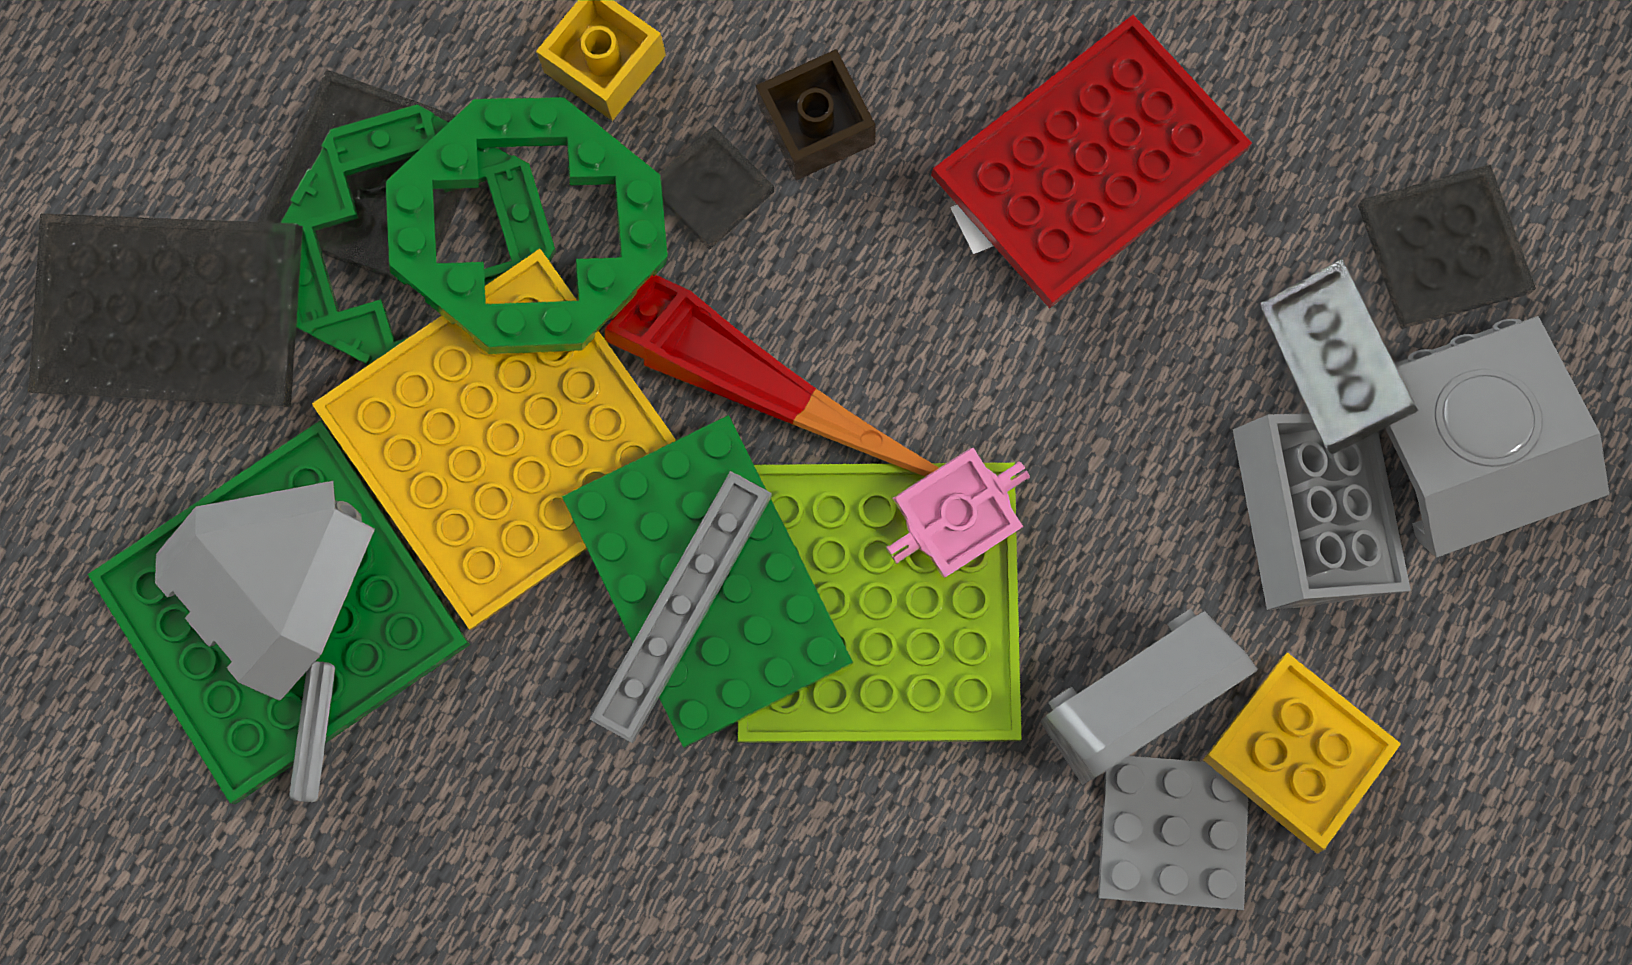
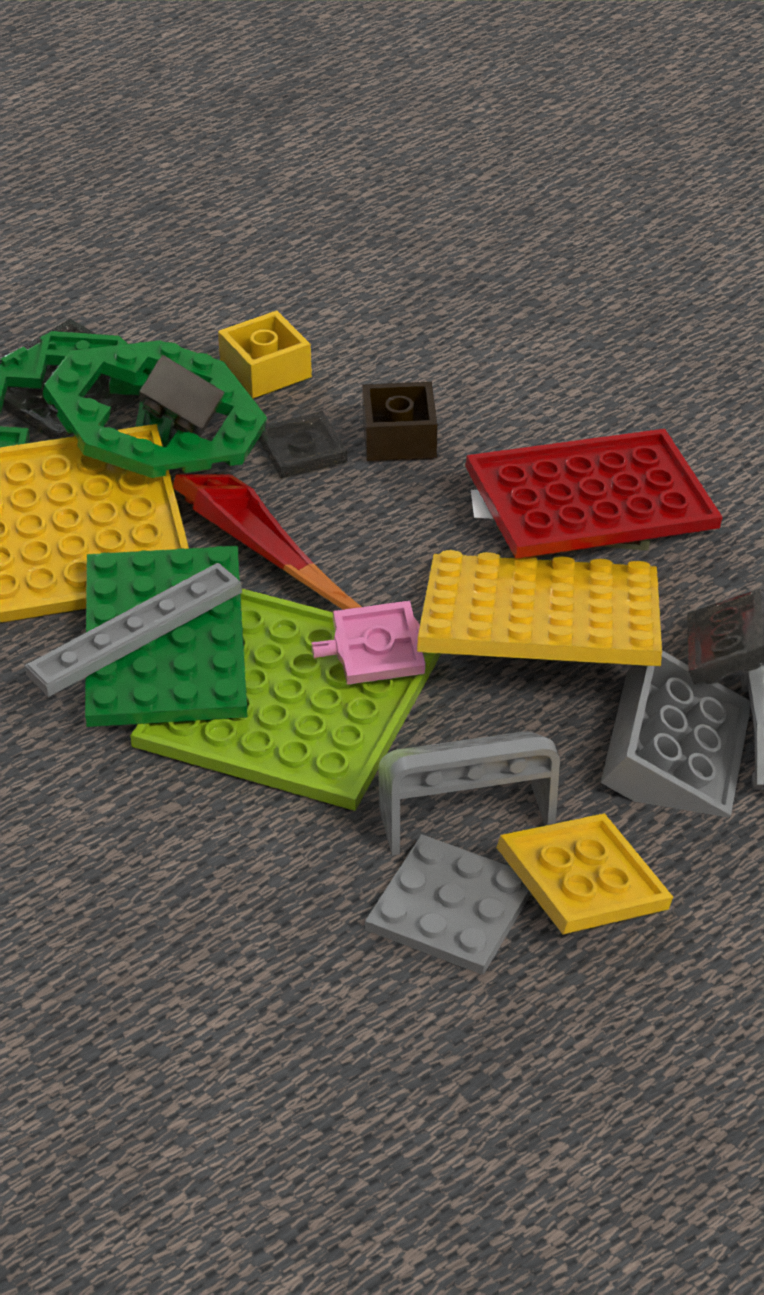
camera: 15 degrees right, 35 degrees down
(562, 215) = (180, 397): none -> dark brown brick
(1119, 394) = (542, 609): none -> yellow plate

